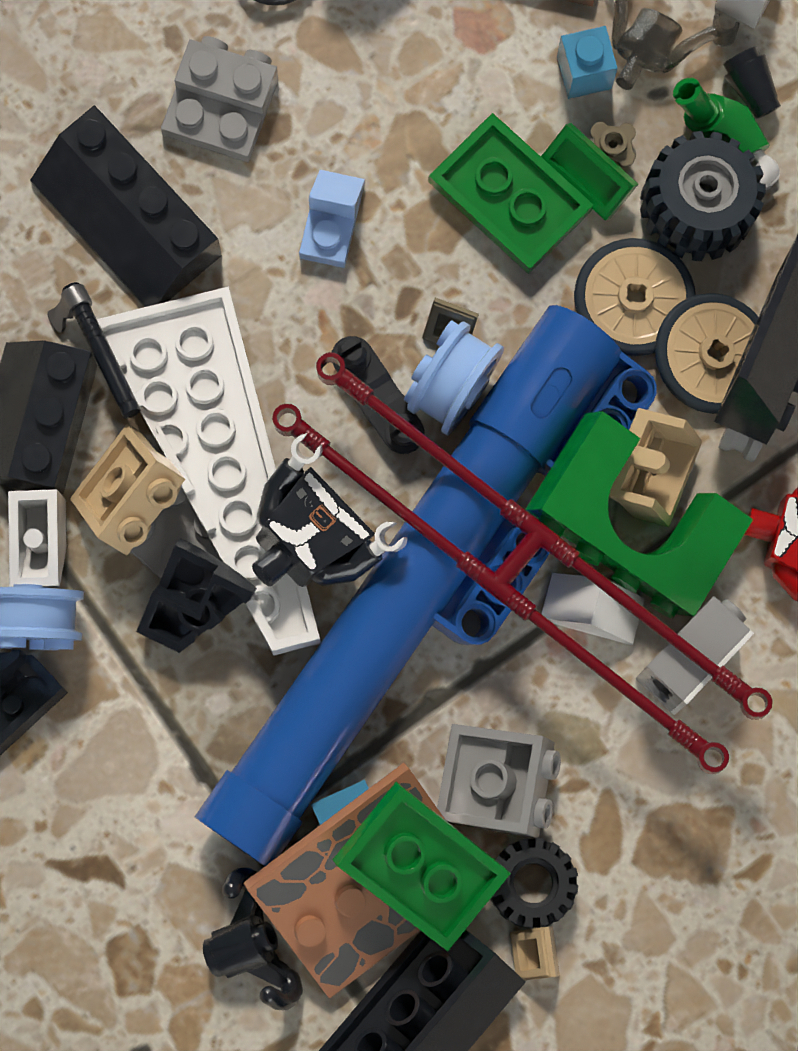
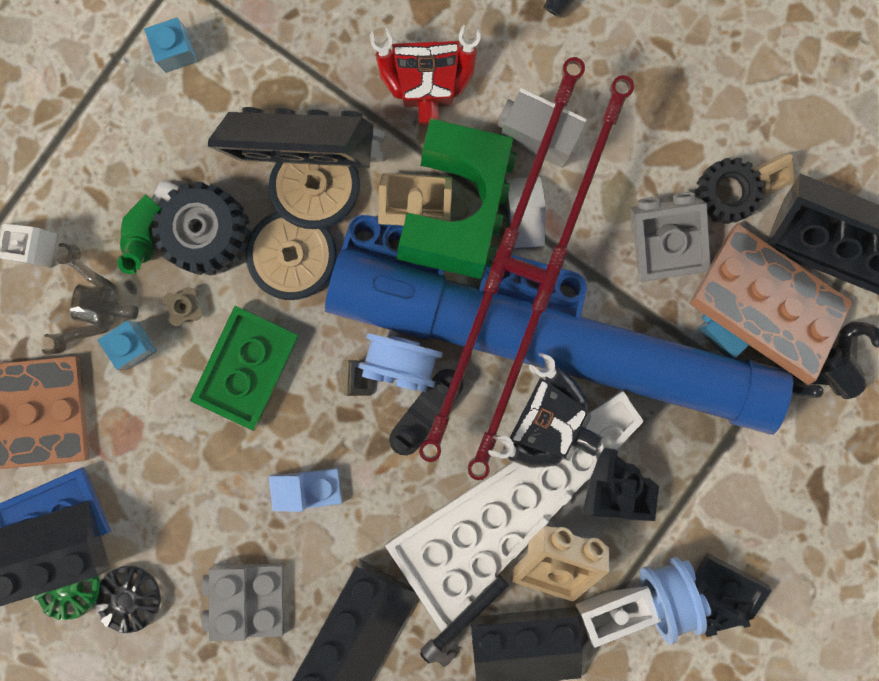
camera: 100 degrees left, 10 degrees up
(421, 866) = (757, 267): green plate -> none
(589, 171) = (209, 317): green tile -> none
(753, 81) = (100, 221): black cone -> none

